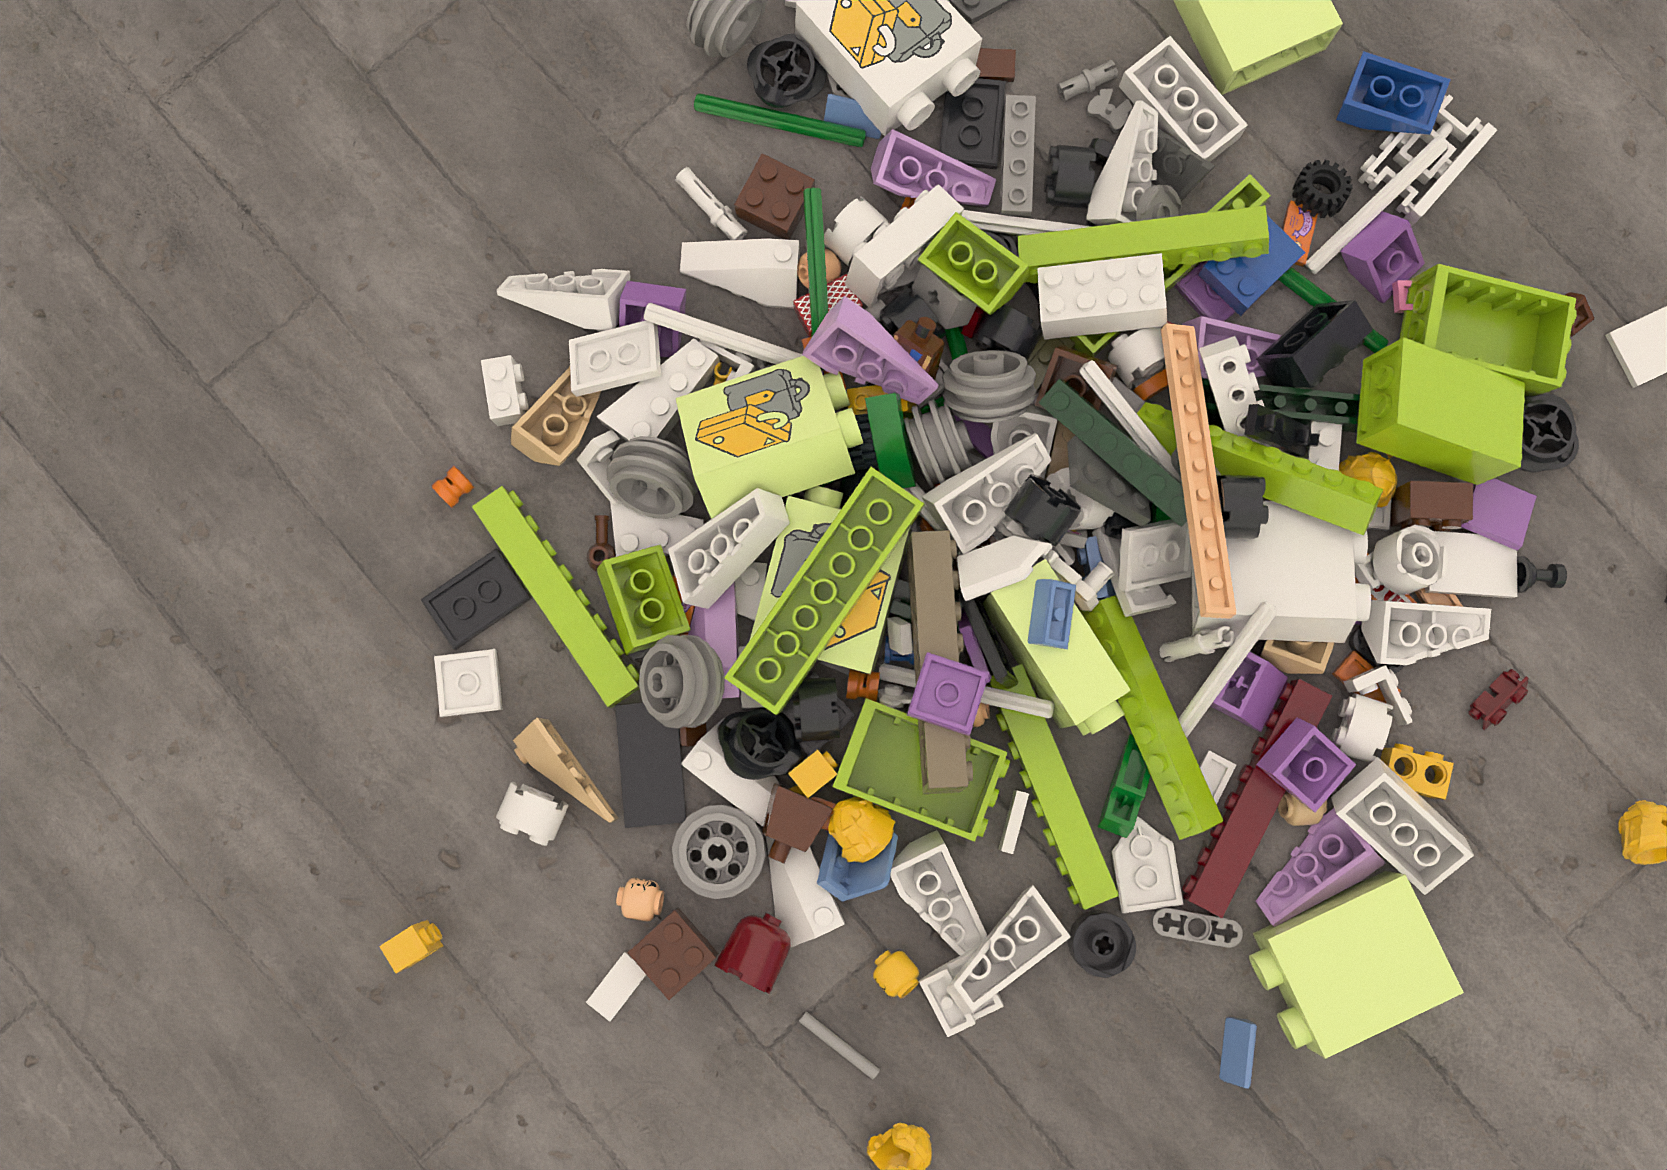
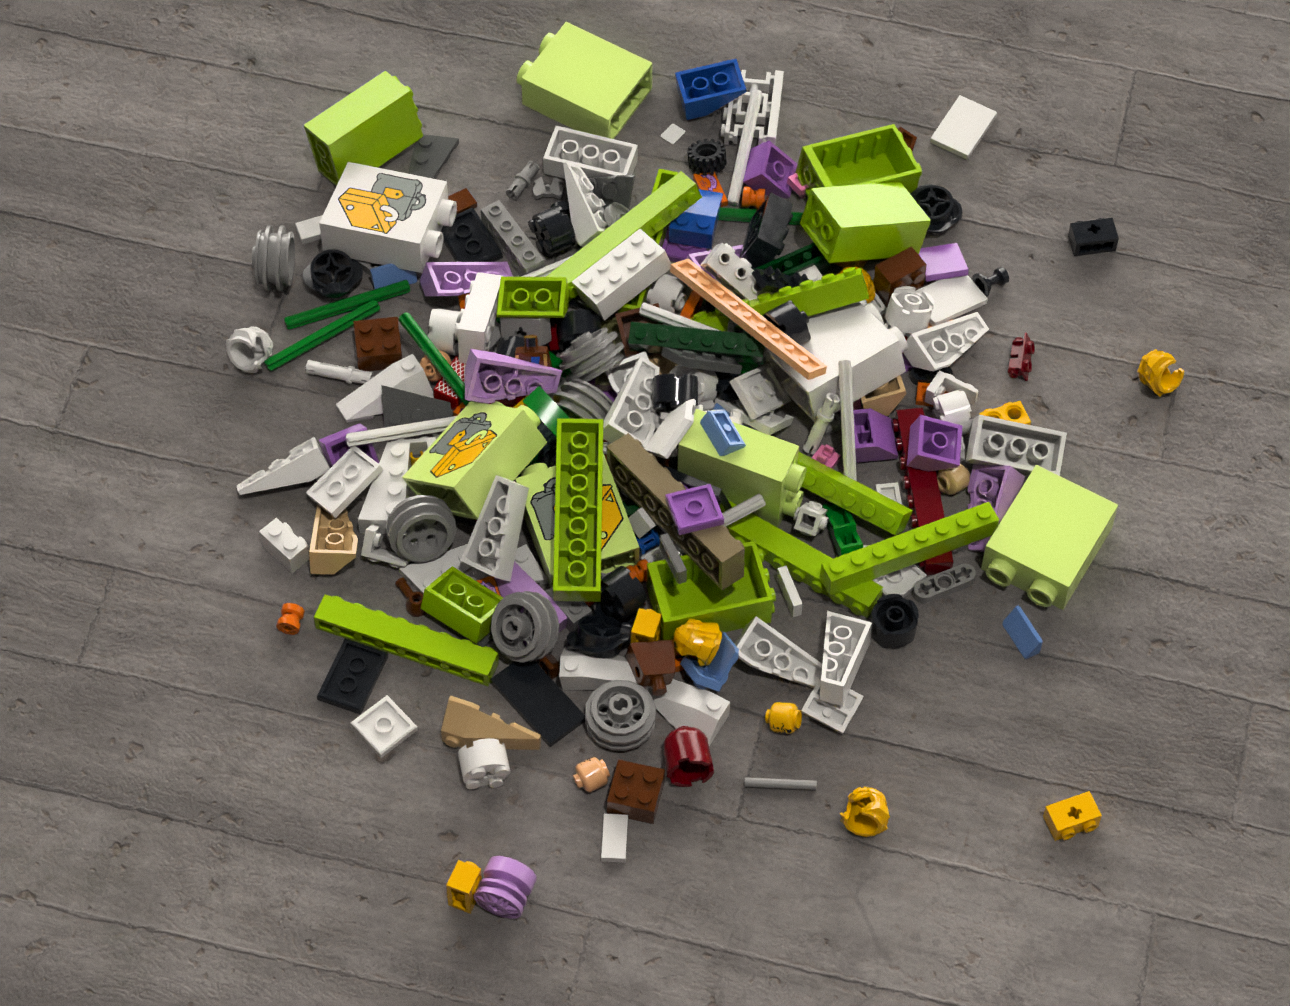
camera: 40 degrees left, 25 degrees down
(449, 978) = (505, 887): none -> lavender wheel
(628, 111) = (249, 348): none -> white helmet
(725, 143) = (321, 335): none -> green axle
(755, 310) = (407, 407): none -> dark grey wing
(893, 719) = (672, 558): none -> light grey tile
(1101, 750) = (804, 522): none -> white brick
(1176, 677) = (827, 456): none -> bright pink tile
(1181, 877) = (908, 548): none -> lime brick
(1307, 126) = (672, 133): none -> white sticker
(1338, 279) = (752, 197): none -> orange wheel

